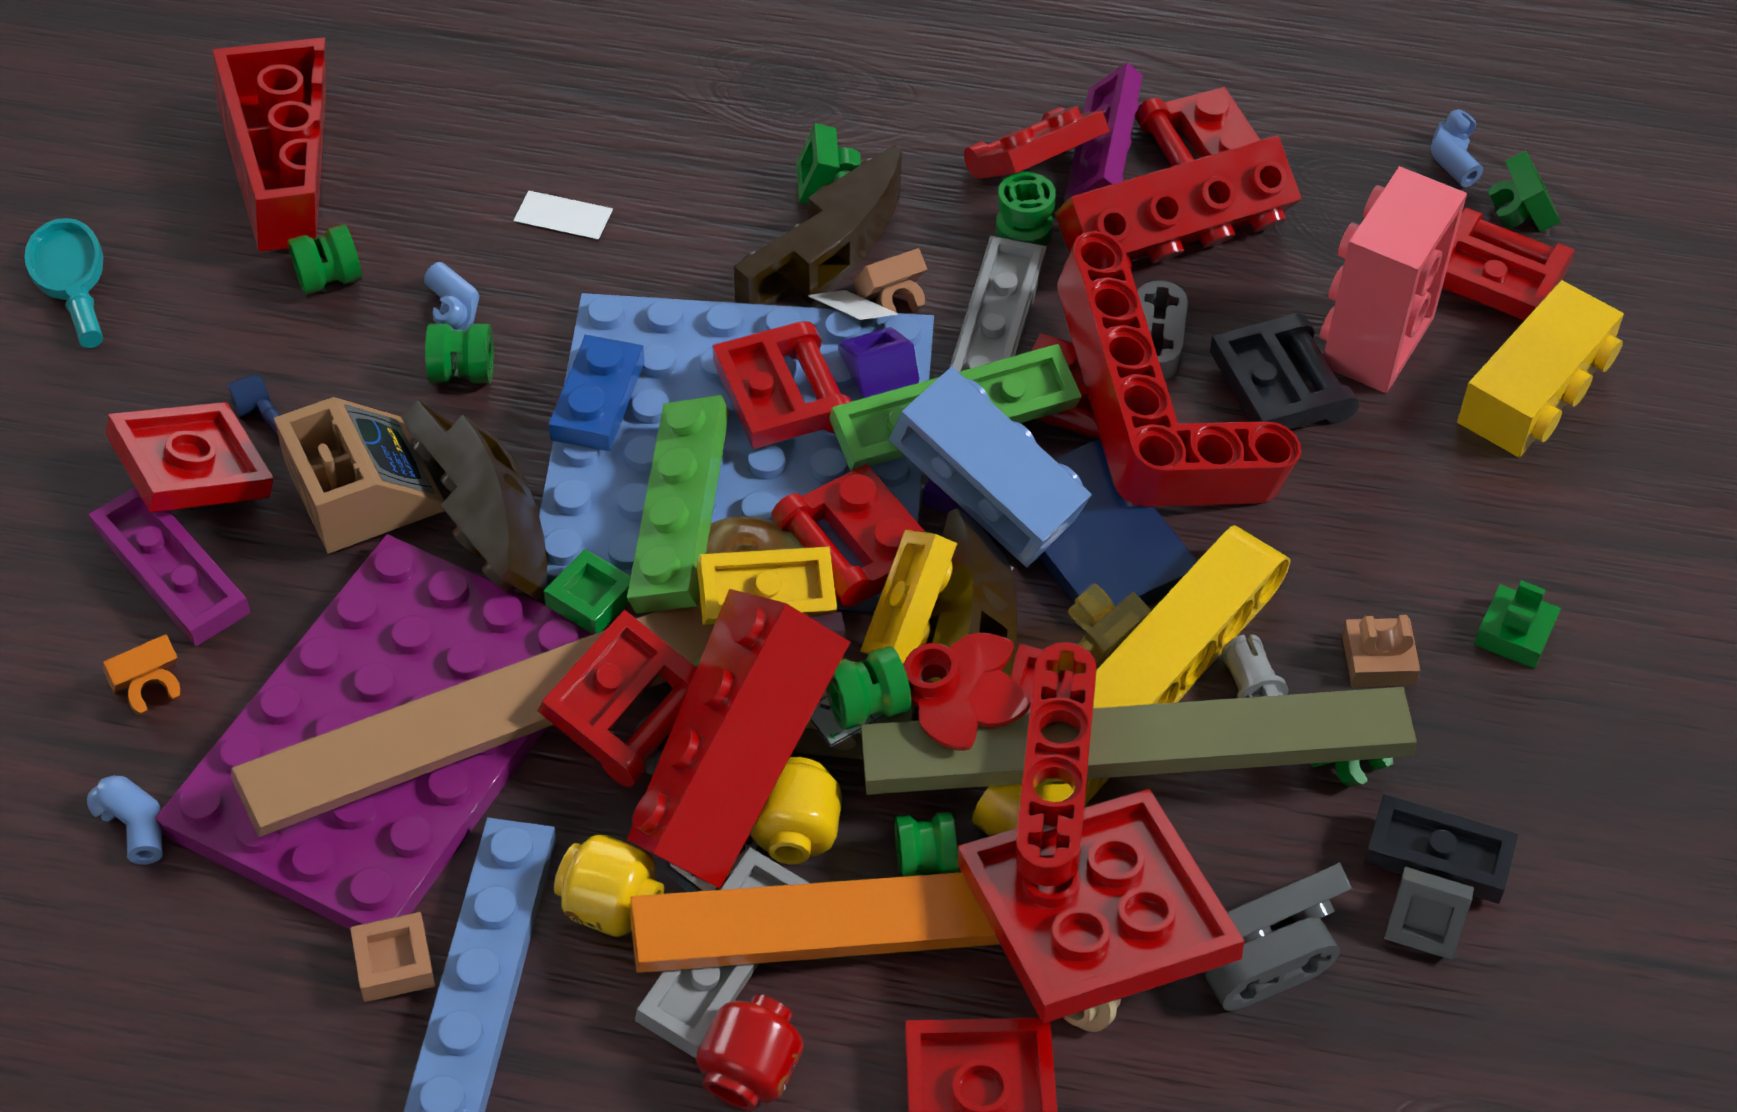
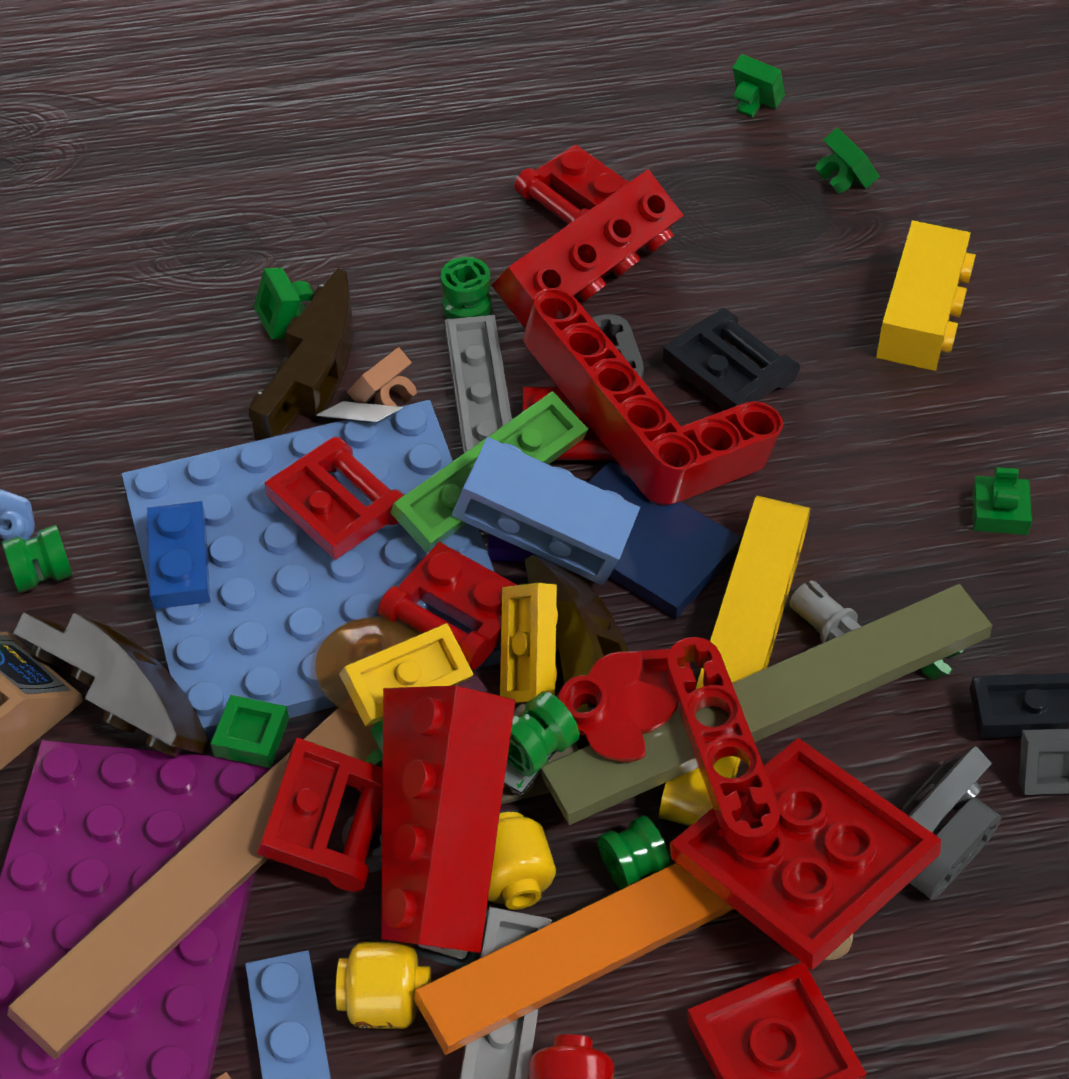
camera: 20 degrees left, 0 degrees up
(563, 214) = (71, 410): white sticker -> none
(678, 504) = (296, 630): bright green plate -> none
(880, 361) = (408, 452): dark purple slope -> none
(1030, 145) = (450, 233): red plate -> none
(1103, 159) = (500, 211): magenta plate -> none
(1104, 622) = (691, 609): clear yellow tile -> none
(1381, 652) = (910, 560): nougat tile -> none
(1390, 277) = (793, 256): coral brick -> none
(1450, 148) = (770, 142): medium blue arm -> none
(1462, 78) = (756, 84): none -> green tile
(1503, 266) = (853, 225): red plate -> none

